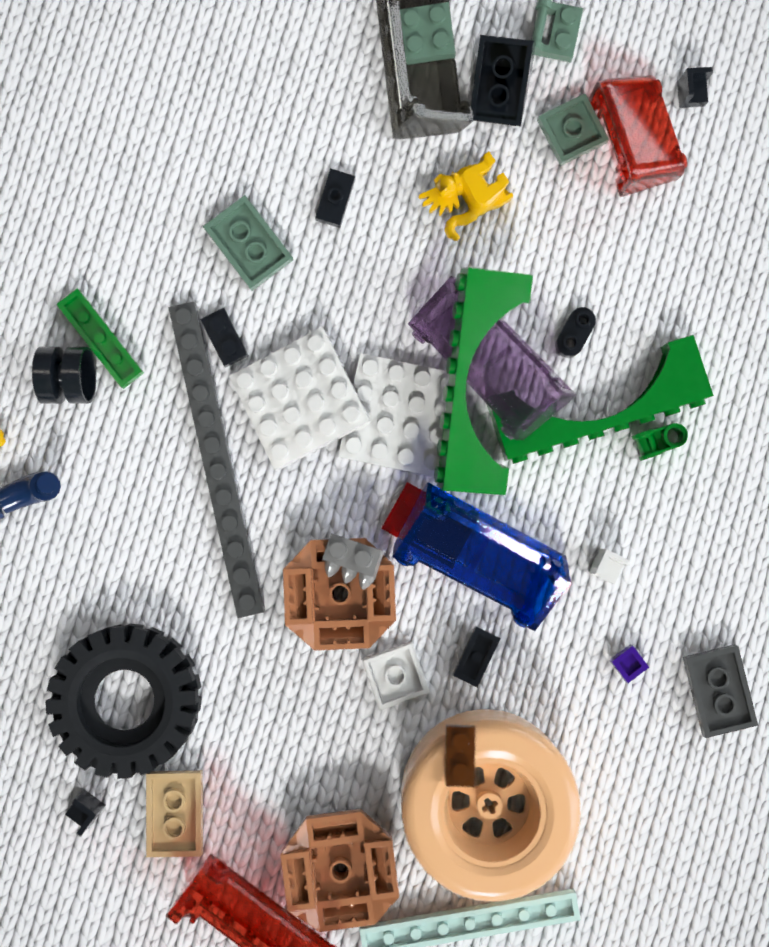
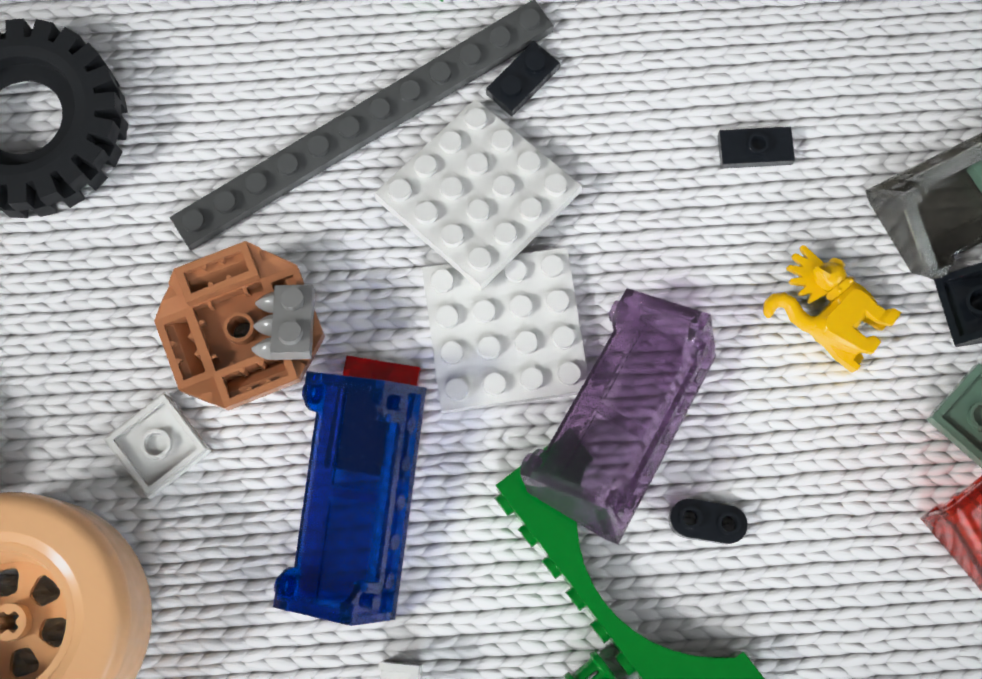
camera: 75 degrees right, 10 degrees down
(248, 243) = (652, 63): sand green plate -> none
(460, 756) = (59, 547): reddish brown plate -> none
(476, 656) = (215, 542): black plate -> none
(481, 302) = (691, 364): green arch -> none

